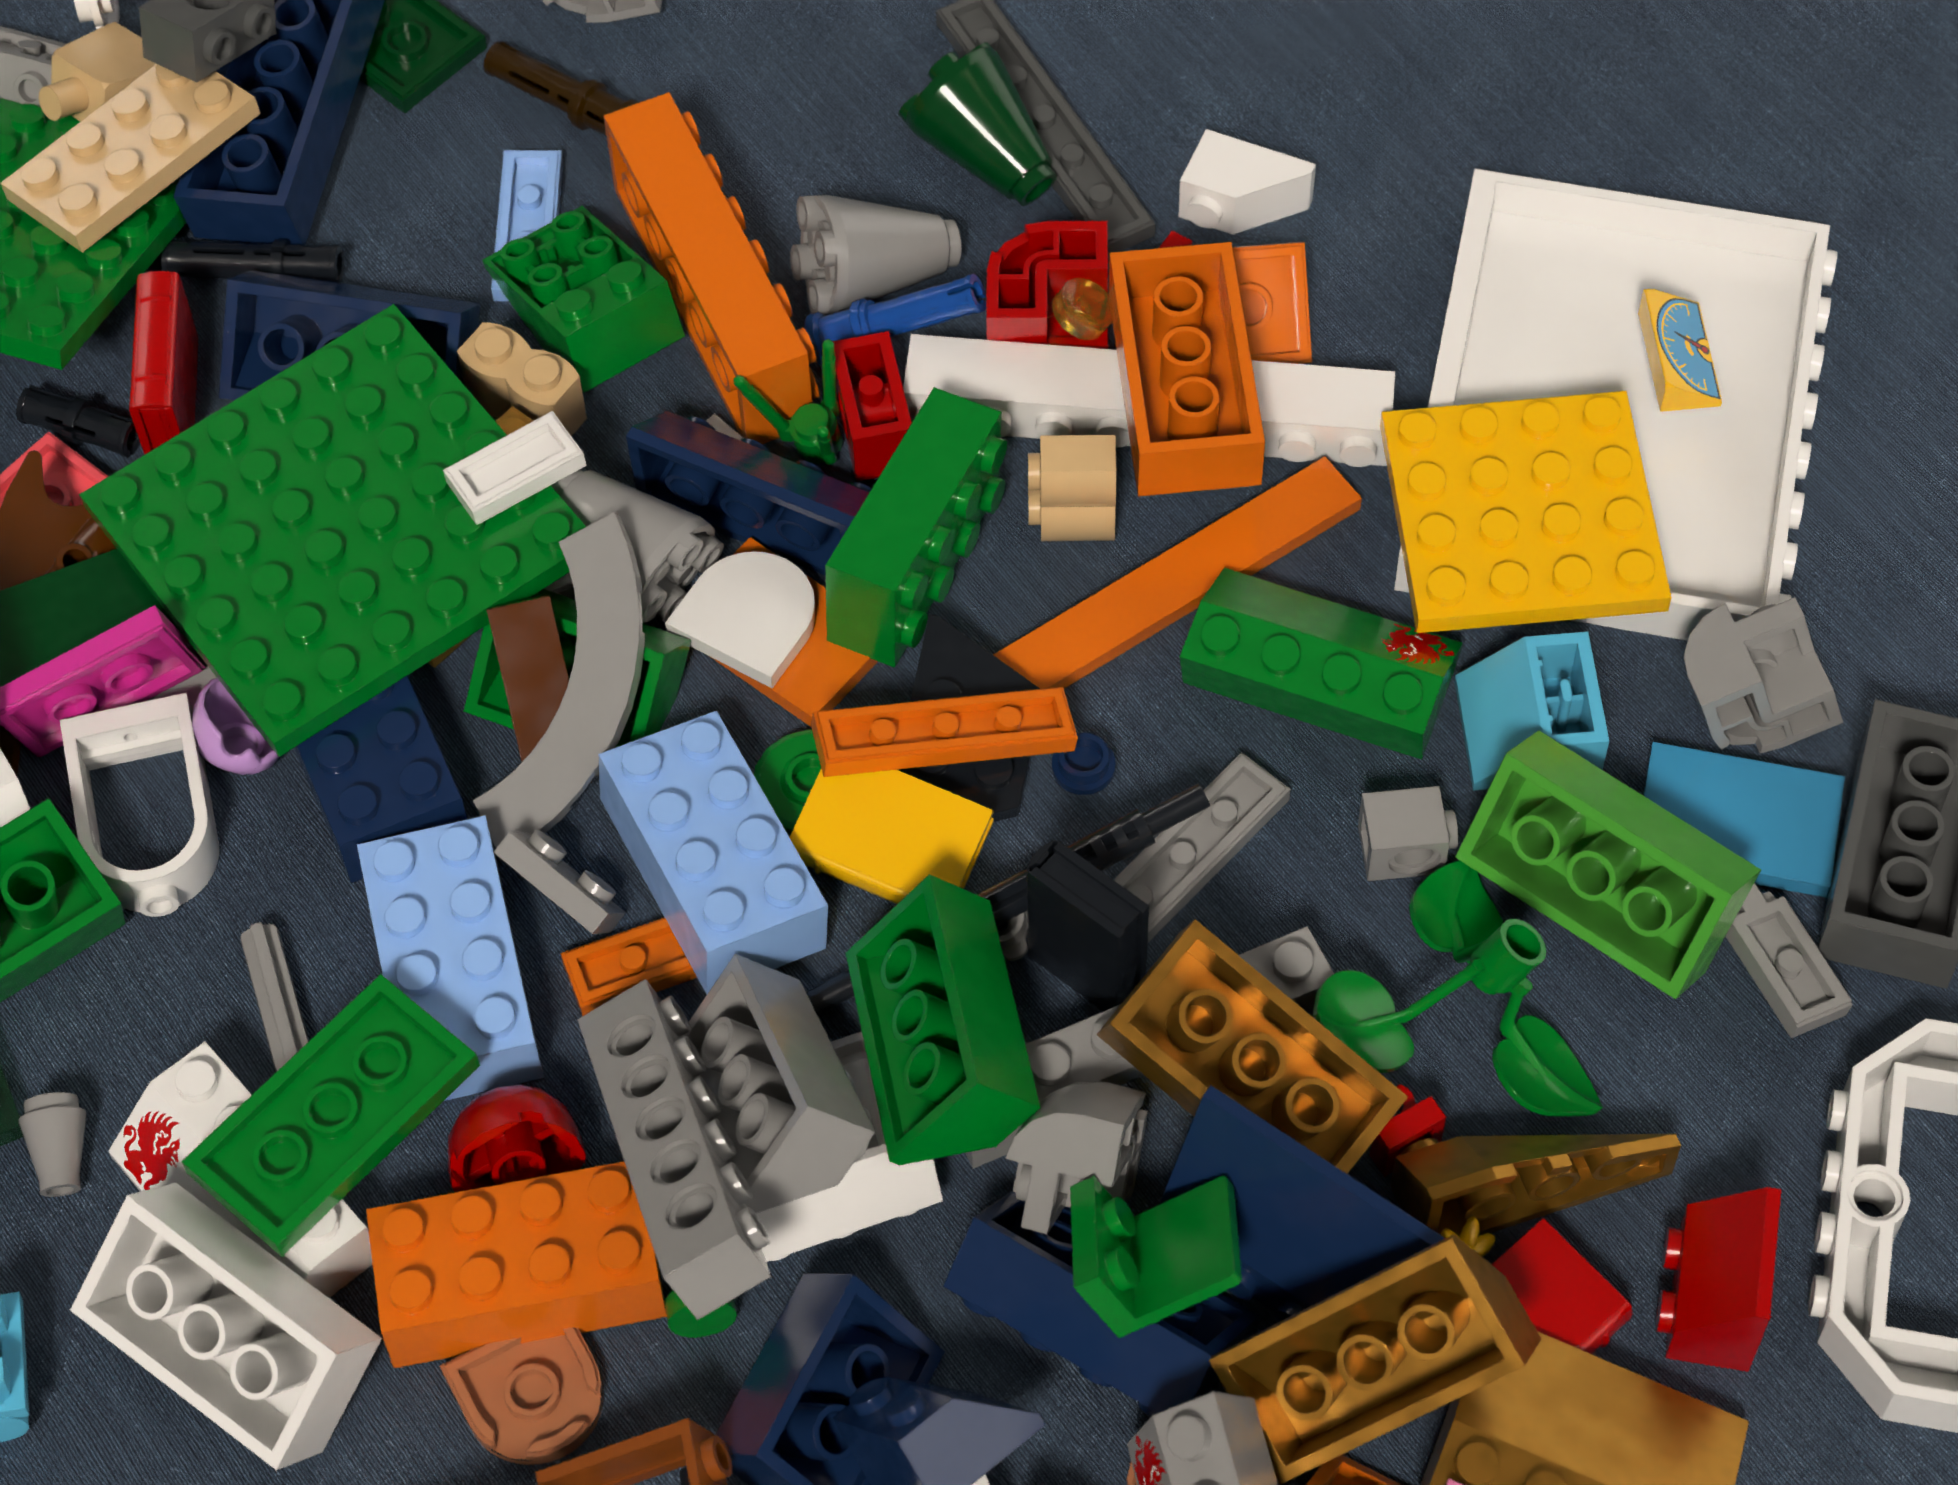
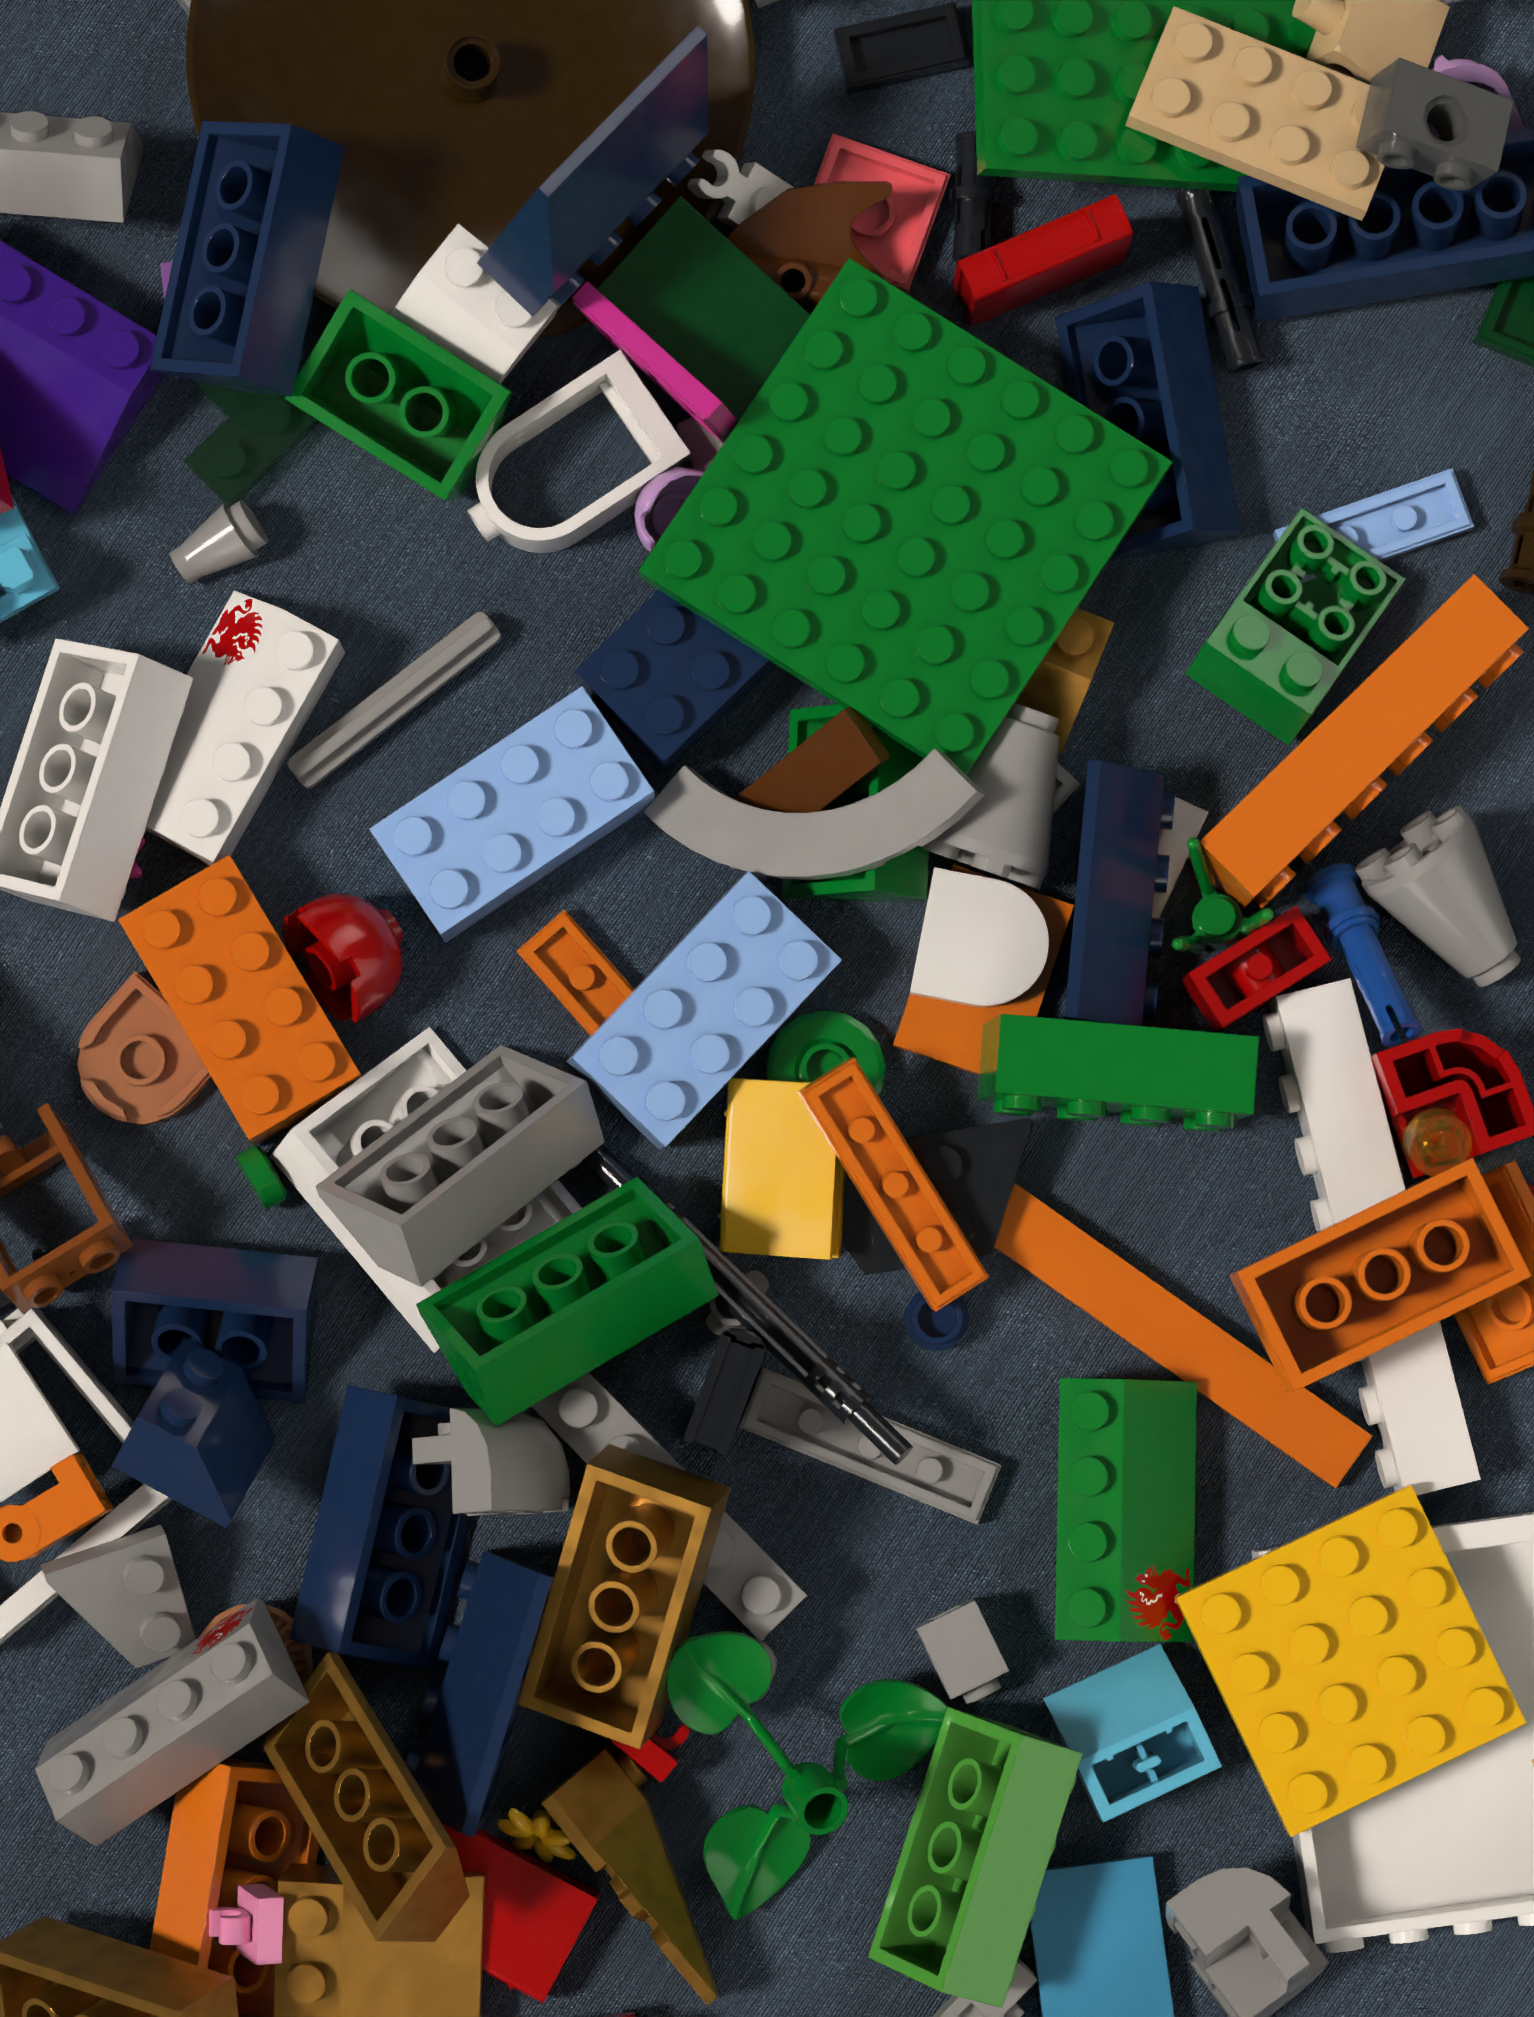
camera: 65 degrees right, 25 degrees up
(330, 1114) = (290, 791): green plate -> none
(508, 373) = (1163, 601): tan brick -> none
(514, 467) = (1004, 670): white tile -> none
(581, 896) = (624, 883): light grey plate -> none
(676, 1149) = (329, 1108): light grey brick -> none
(1073, 487) = (1222, 1206): tan brick -> none
(1155, 1261) = (401, 1572): green bracket -> none

